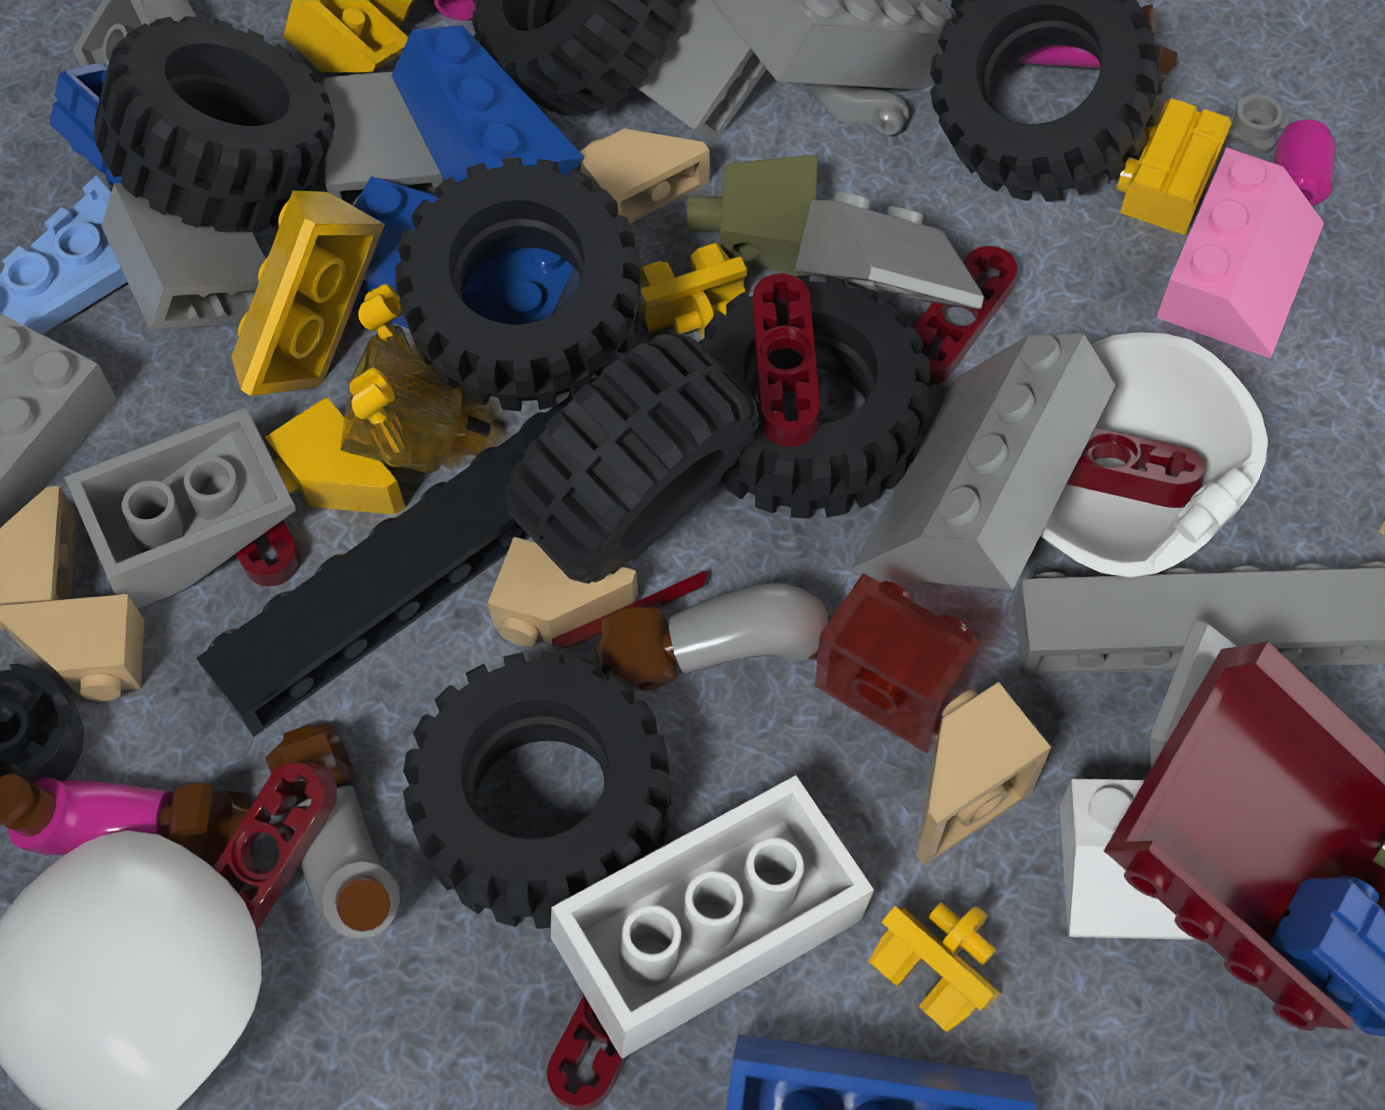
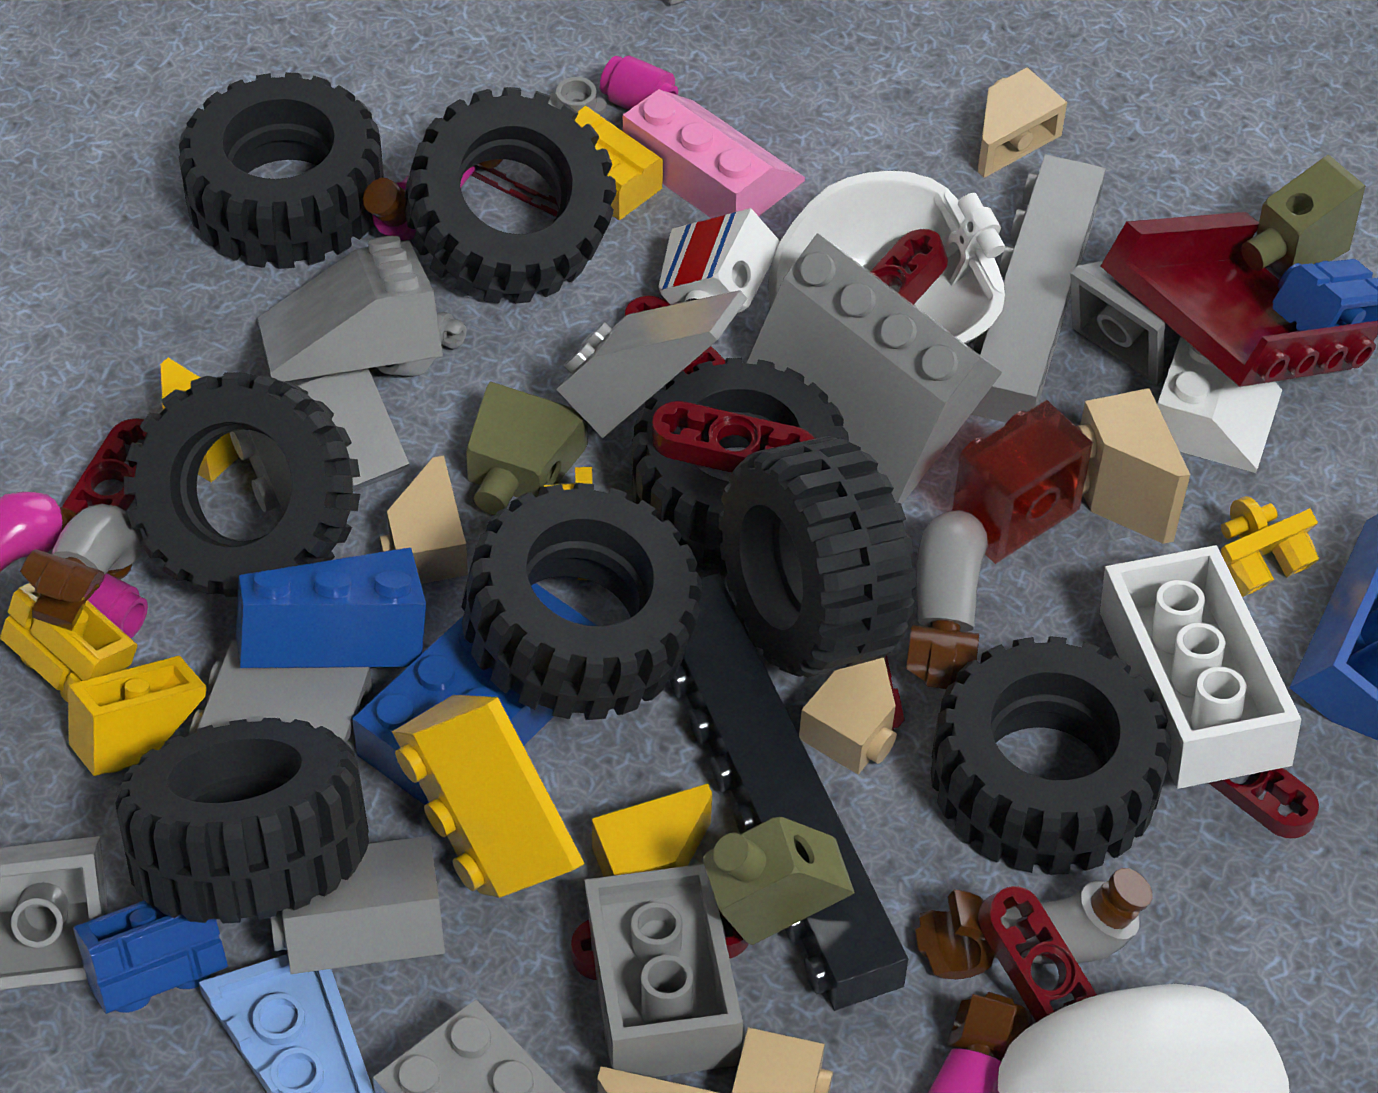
camera: 75 degrees left, 10 degrees down
(265, 549) = (775, 876): none -> olive torso
(396, 401) = (619, 760): clear yellow torso -> none
(1061, 295) = (717, 258): none -> white torso

